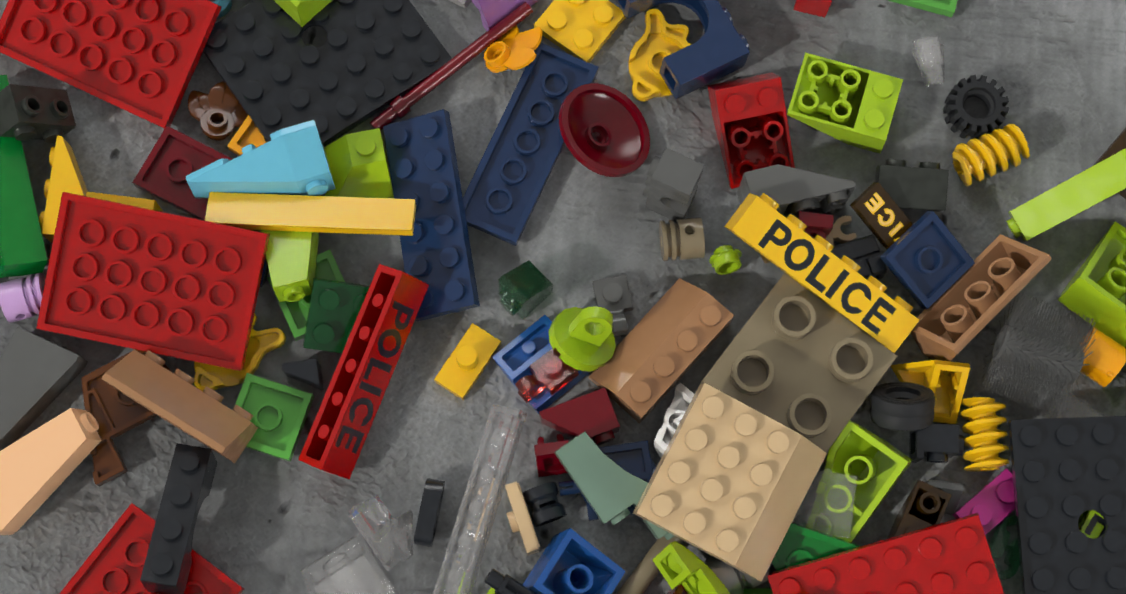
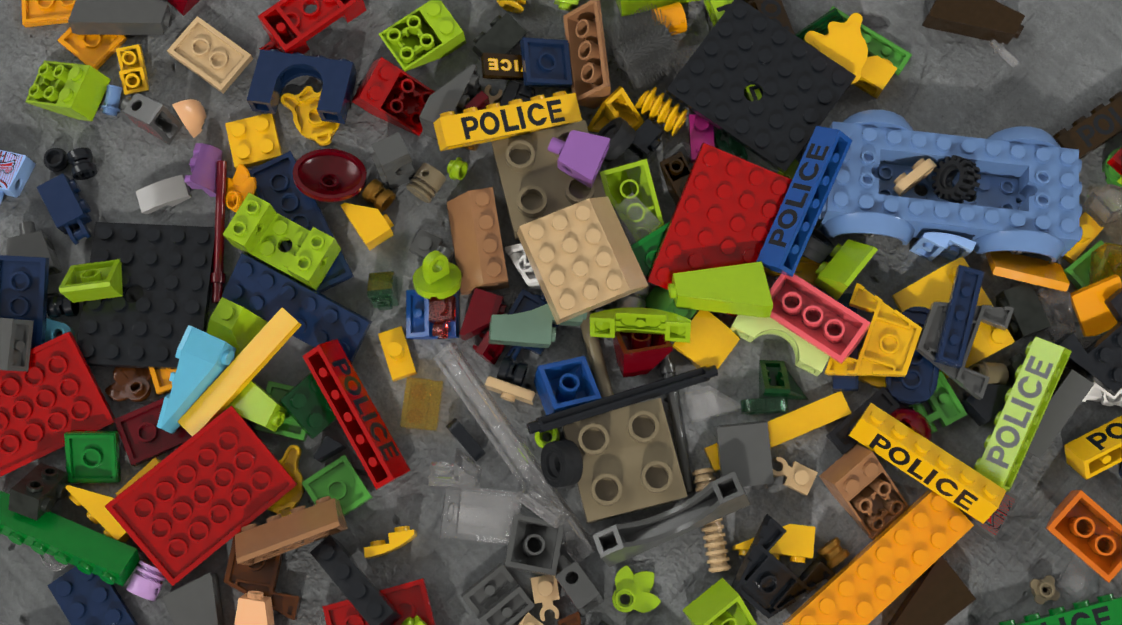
camera: 50 degrees left, 0 degrees up
(112, 136) = (92, 456): none -> green plate
(266, 526) = (397, 539): none -> yellow slope
(432, 433) = (421, 404): none -> clear yellow plate
(483, 110) = (261, 231): none -> lime plate
(585, 215) = (369, 224): none -> yellow slope
(625, 199) = (378, 195): none -> pearl gold wheel
(847, 385) = (580, 155): none -> medium lavender torso

